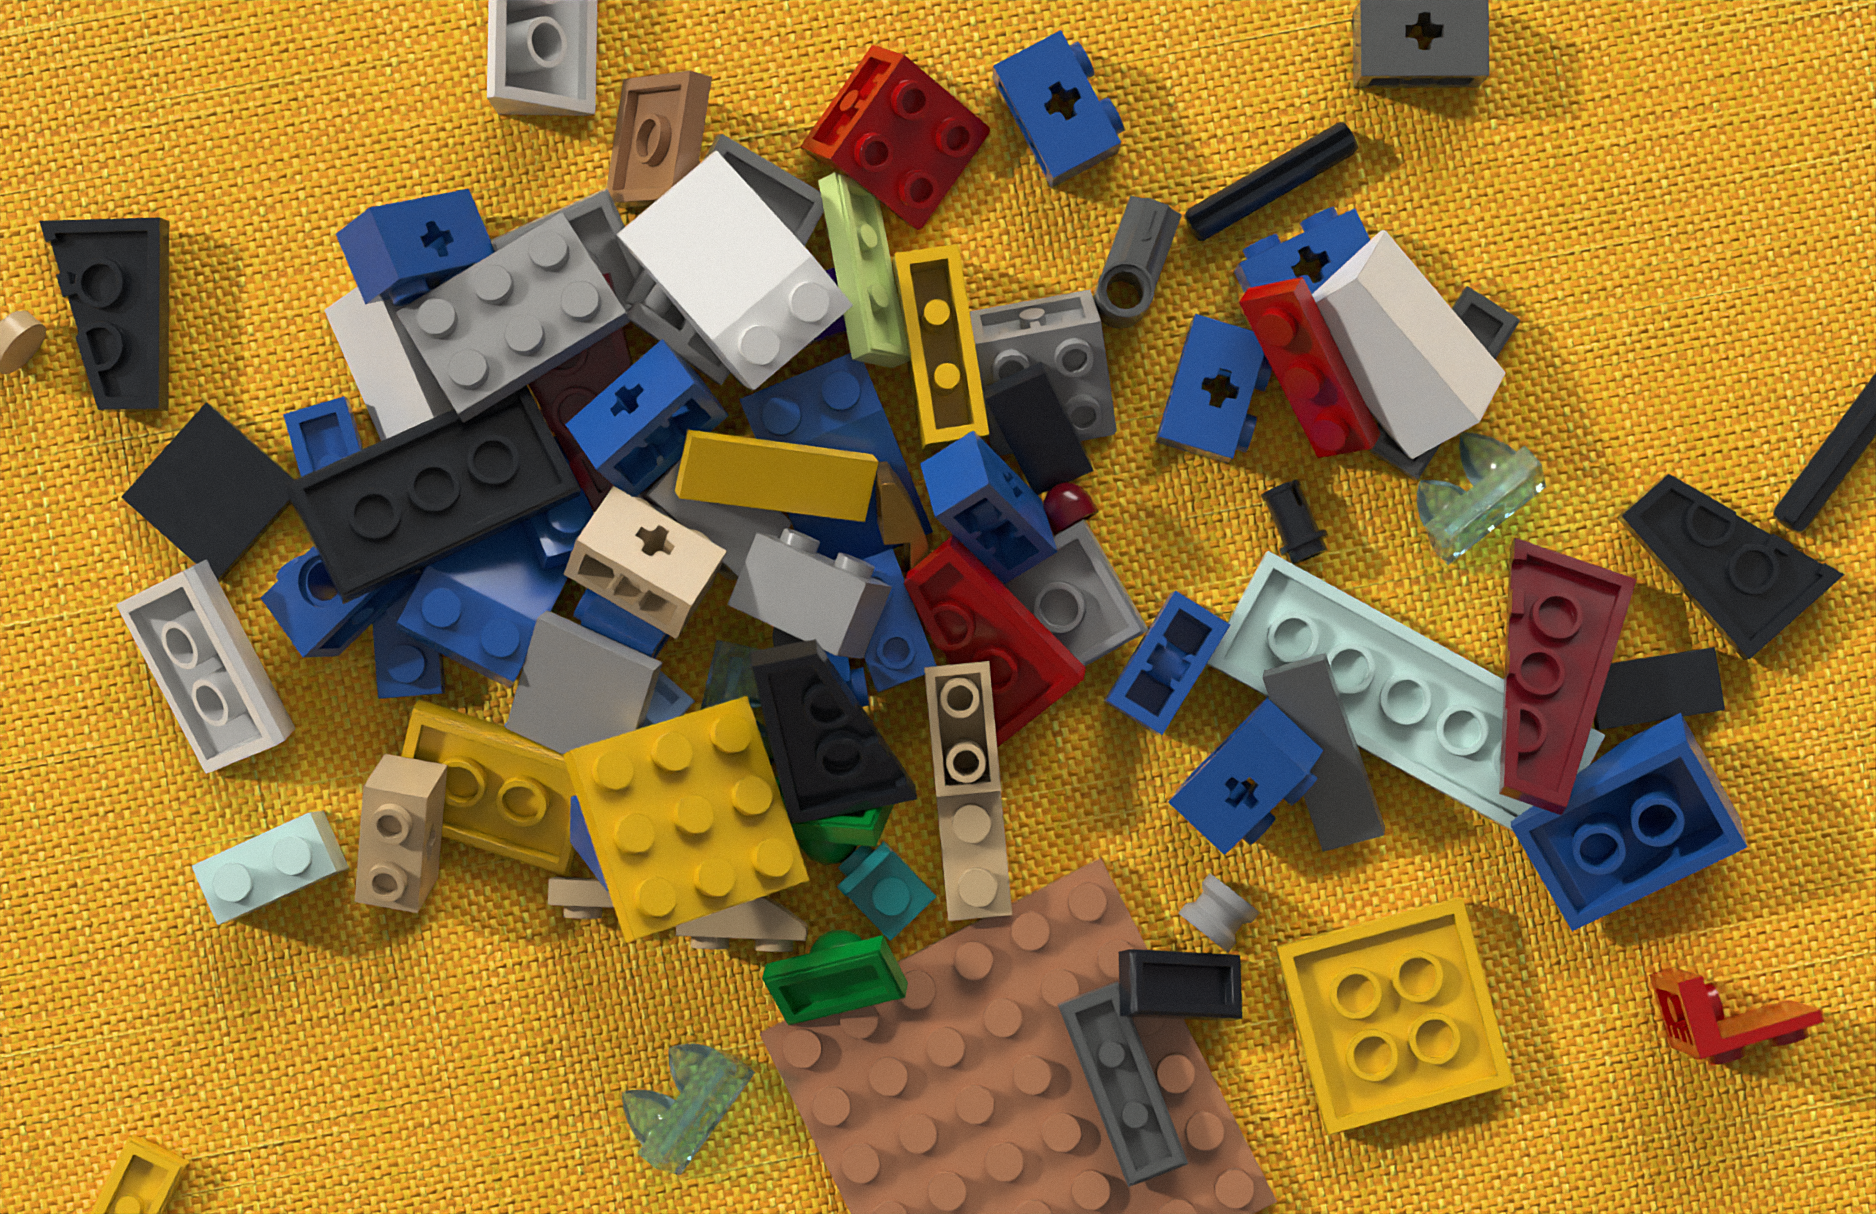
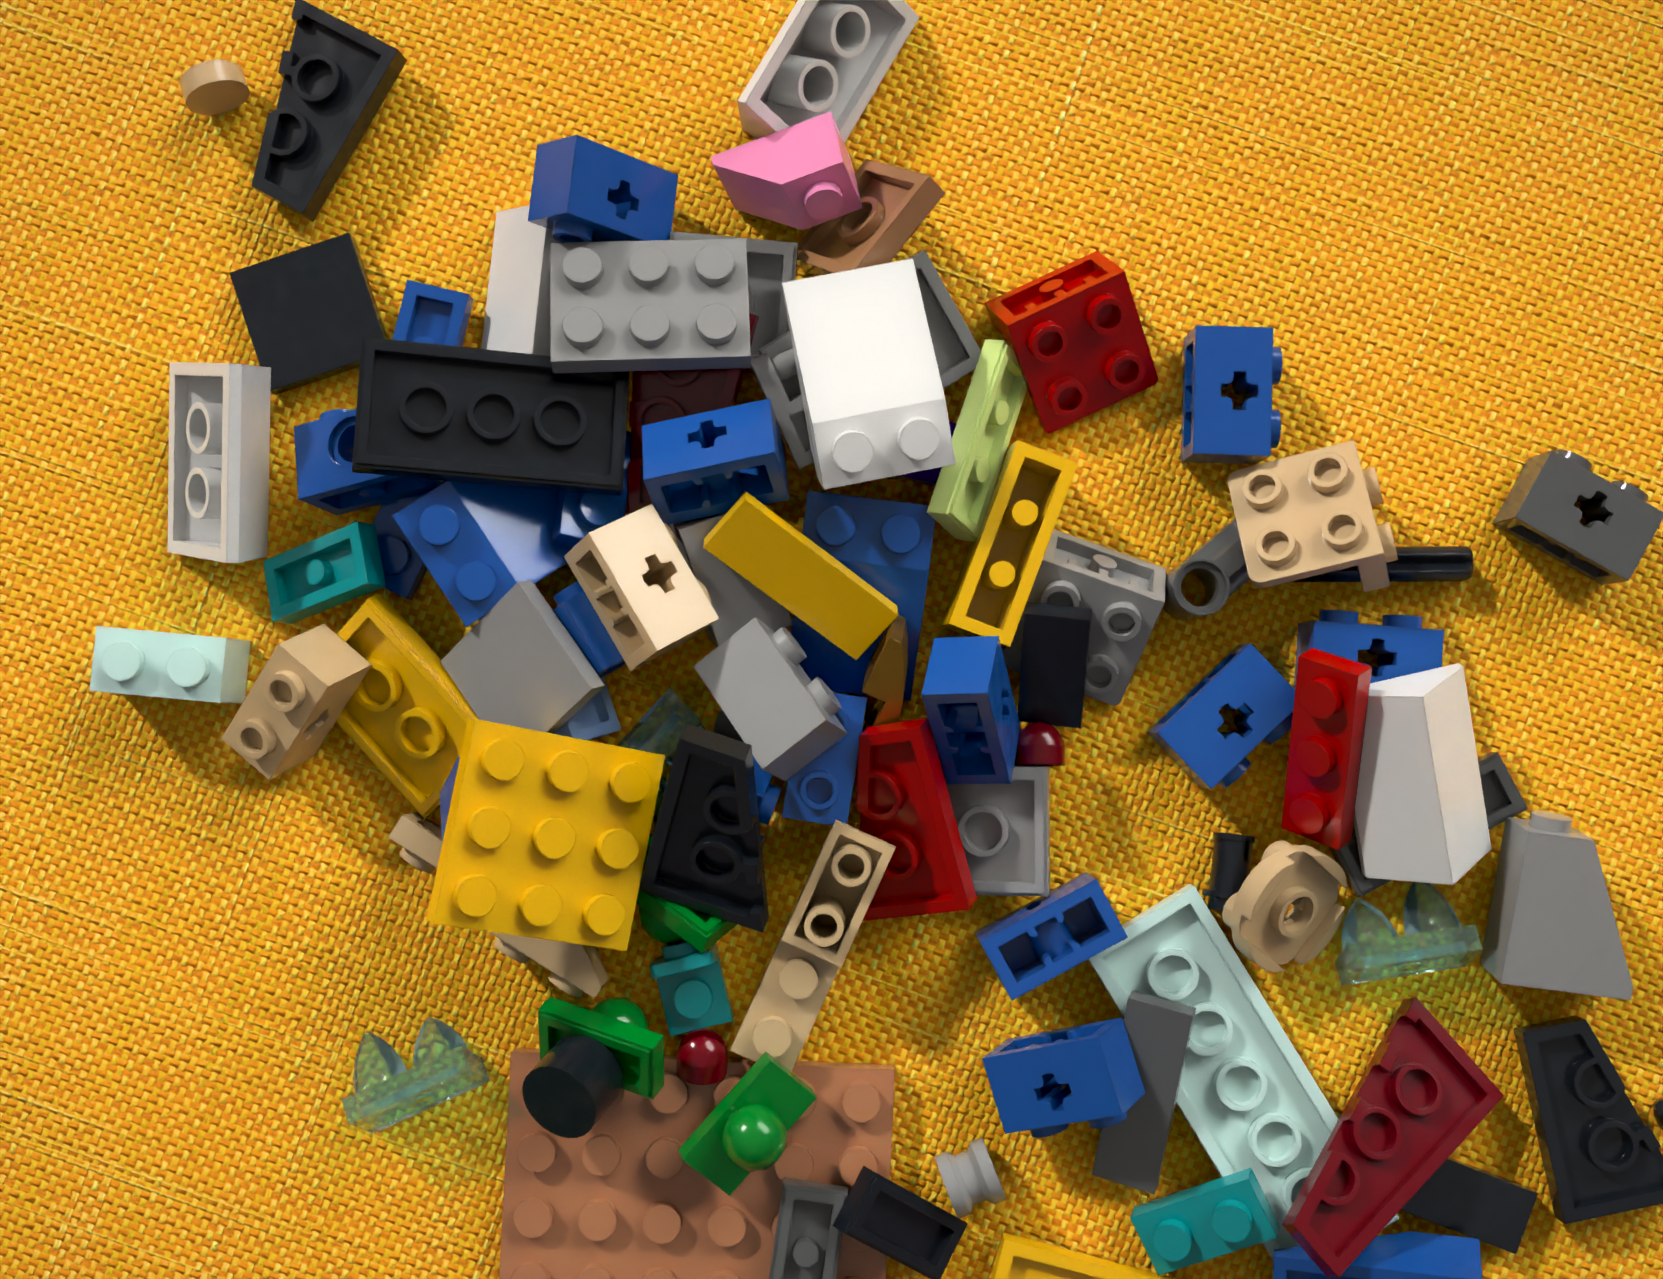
camera: 35 degrees right, 0 degrees up
(358, 710) = (324, 573): none -> teal plate
(569, 132) = (792, 175): none -> bright pink slope
(829, 1022) = (573, 1086): none -> black piece
(927, 942) = (702, 1058): none -> dark red hinge
(999, 972) = (748, 1125): none -> green tile
(1187, 175) = (1311, 518): none -> tan bracket
(1329, 522) = (1282, 878): none -> tan plate
(1440, 834) = (1205, 1221): none -> teal plate
(1588, 397) = (1553, 913): none -> light grey slope

